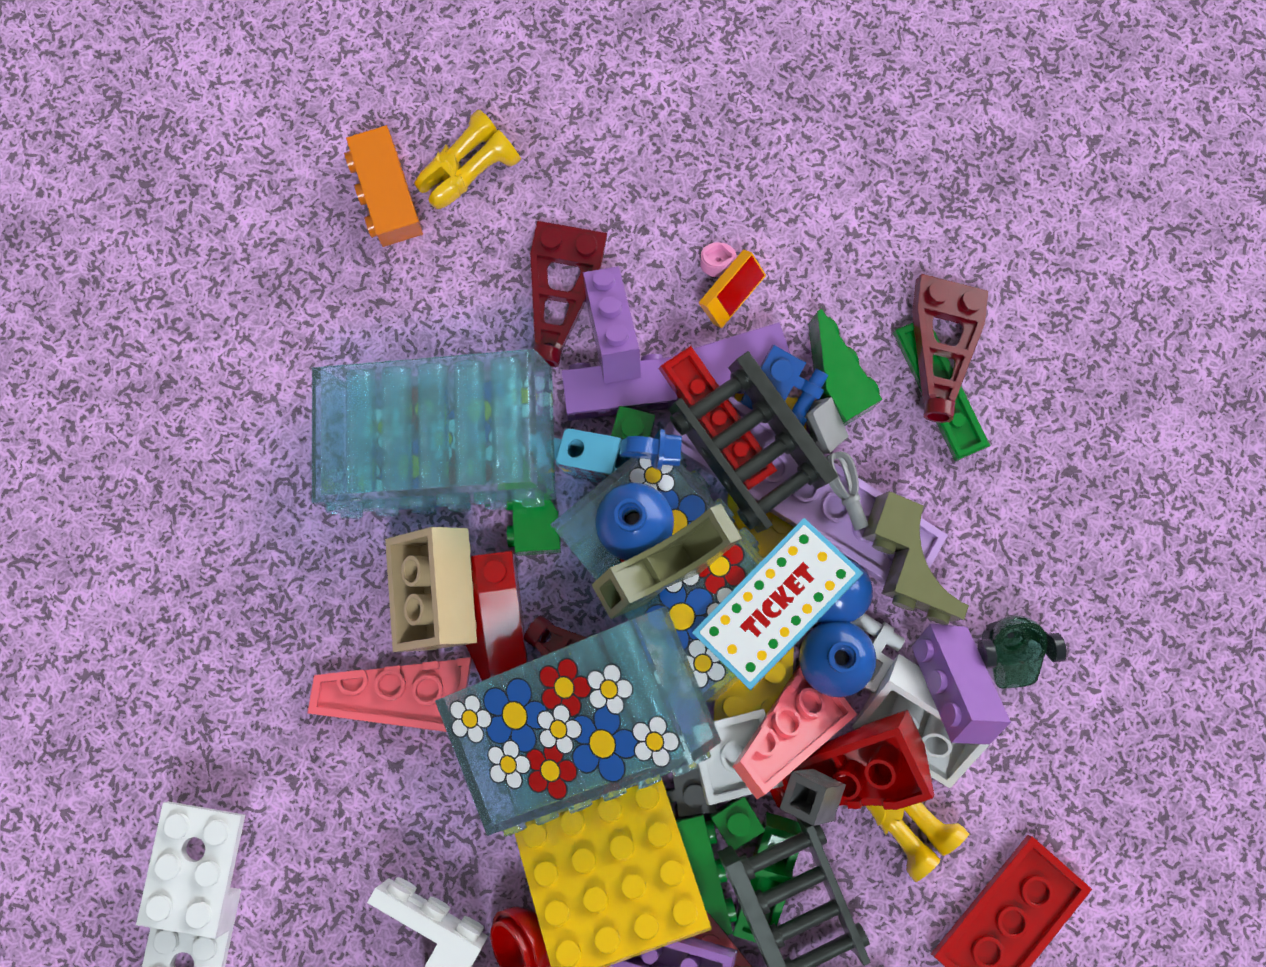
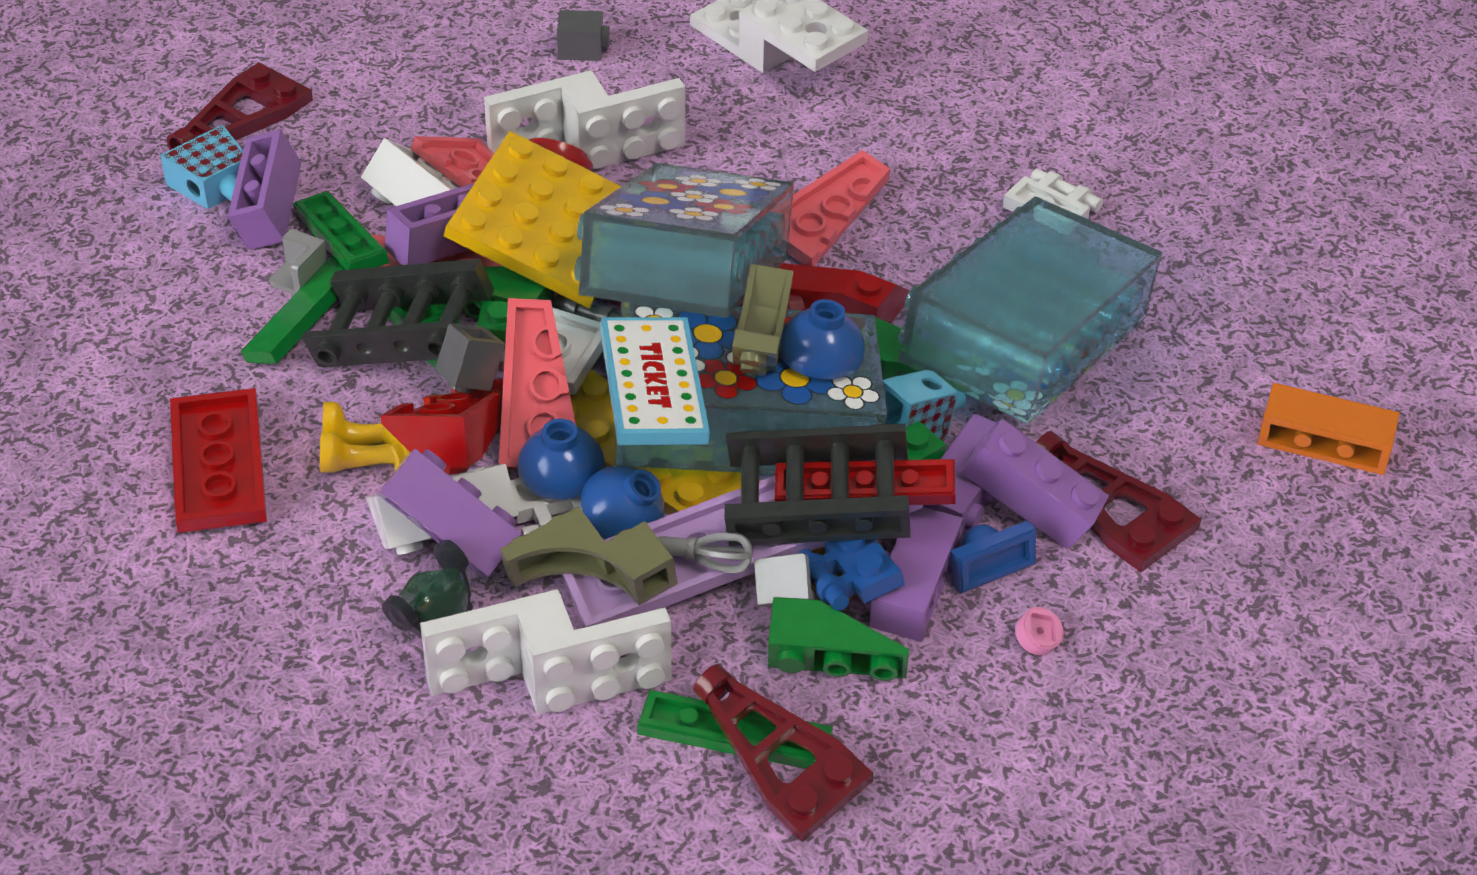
camera: 130 degrees right, 35 degrees down
(267, 527) = (1054, 190): none -> white plate
(430, 589) = (883, 246): tan brick -> none
(447, 167) = (1304, 490): yellow piece -> none
(661, 449) = (875, 394): blue piece -> none
(676, 329) = (992, 554): none -> blue tile
(732, 288) = (996, 618): tile -> none
(1005, 528) = (540, 642): none -> white bracket

